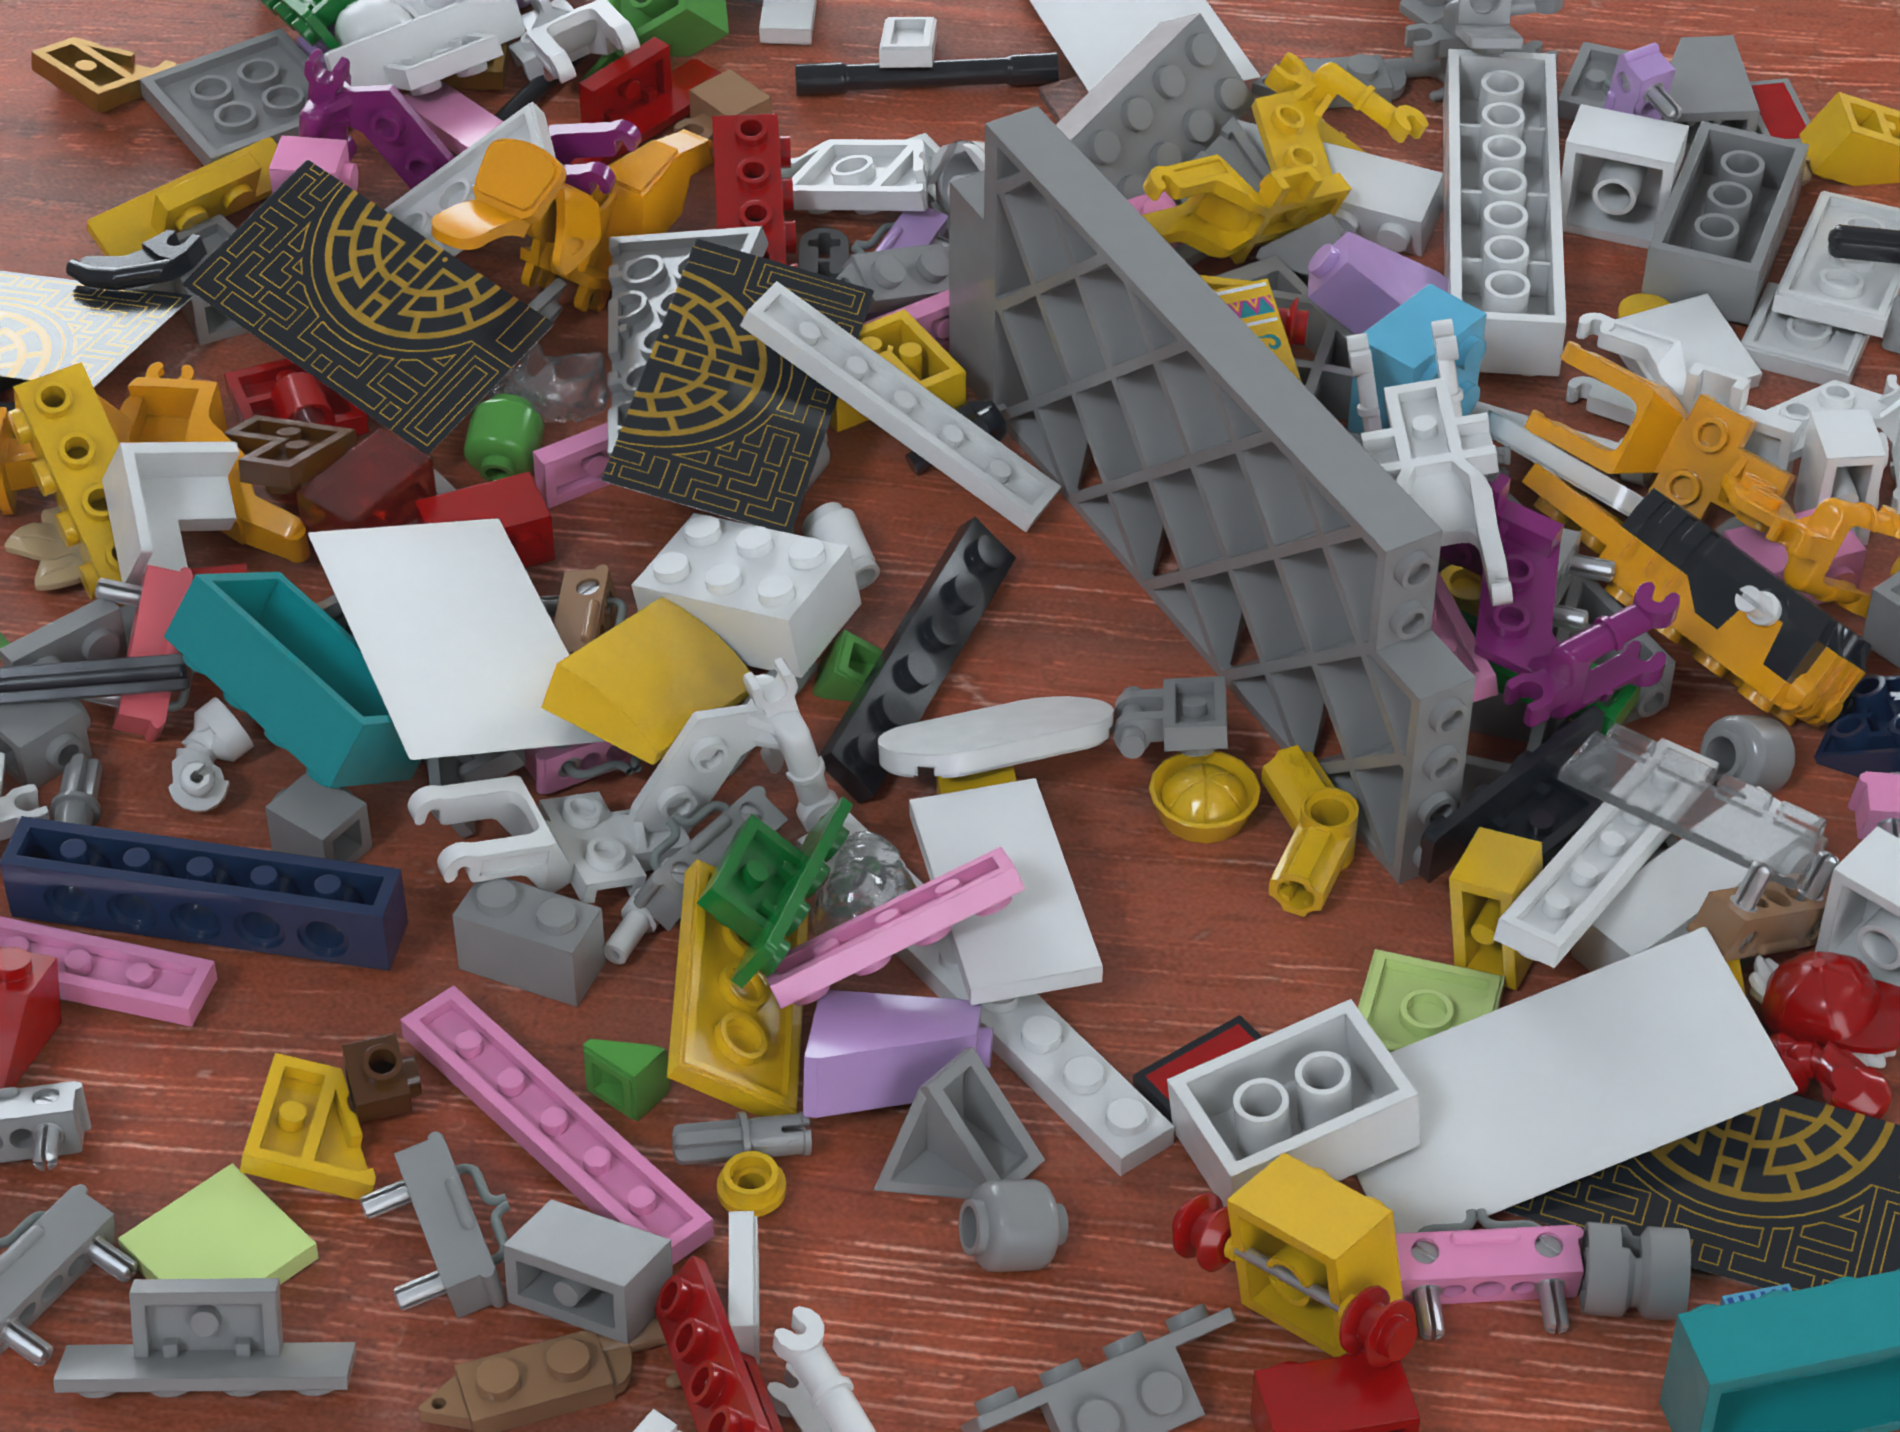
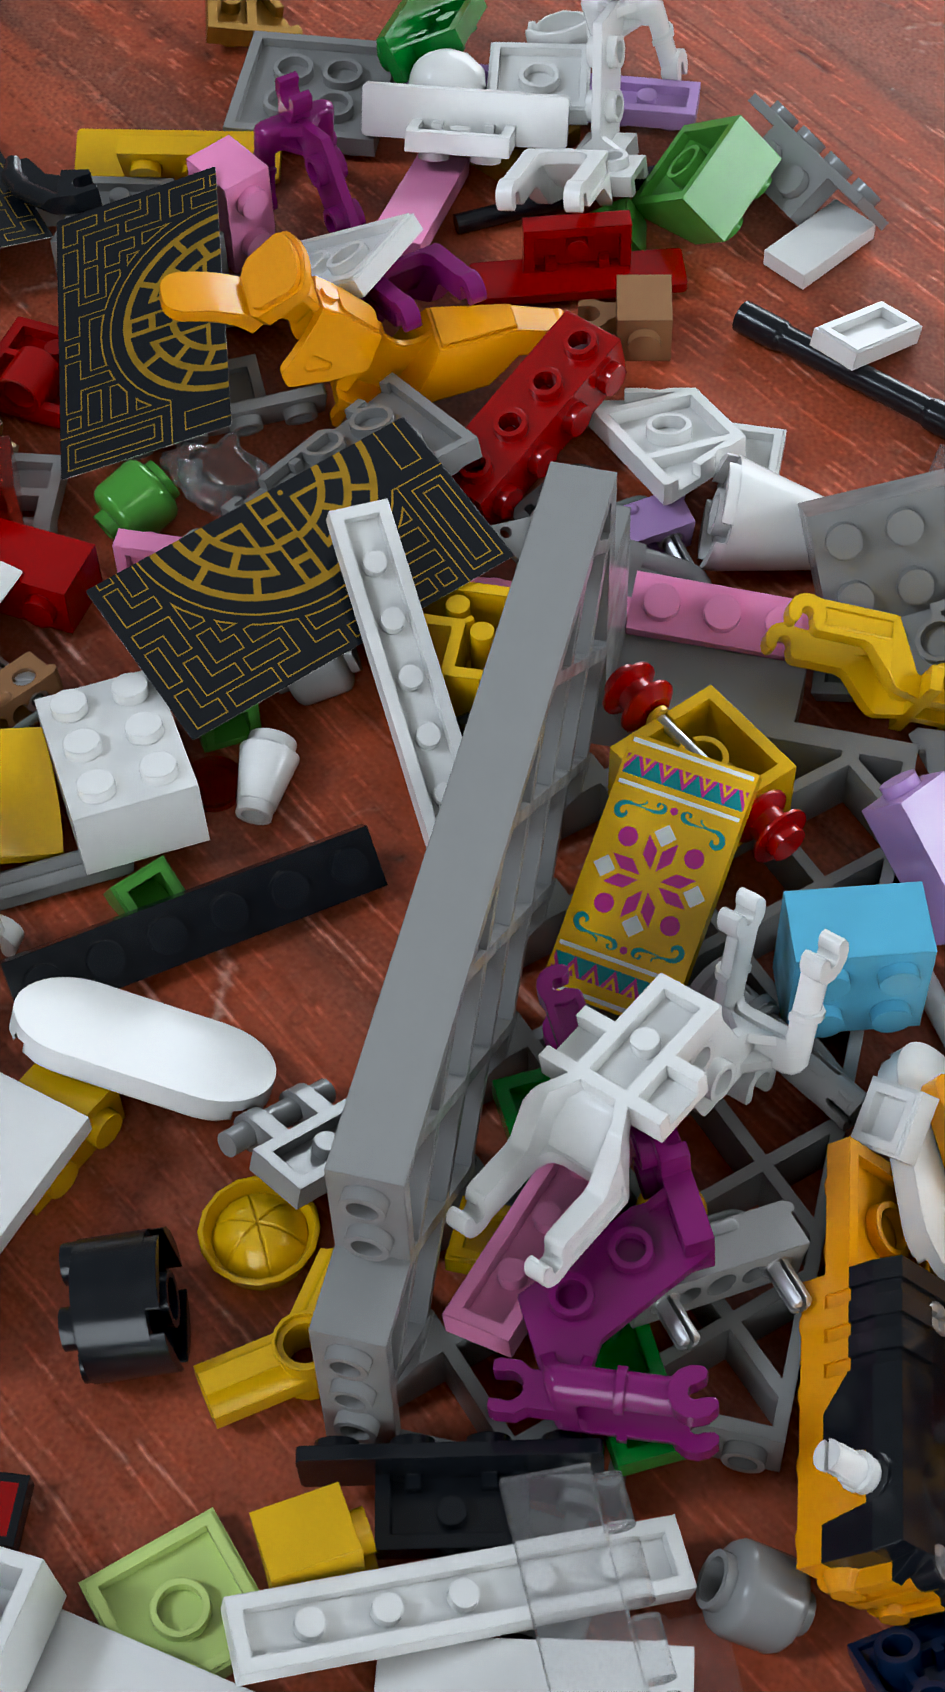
camera: 45 degrees right, 10 degrees up
(1190, 871) = (124, 1306): none -> black brick
(1543, 440) = (894, 1120): none -> white tile

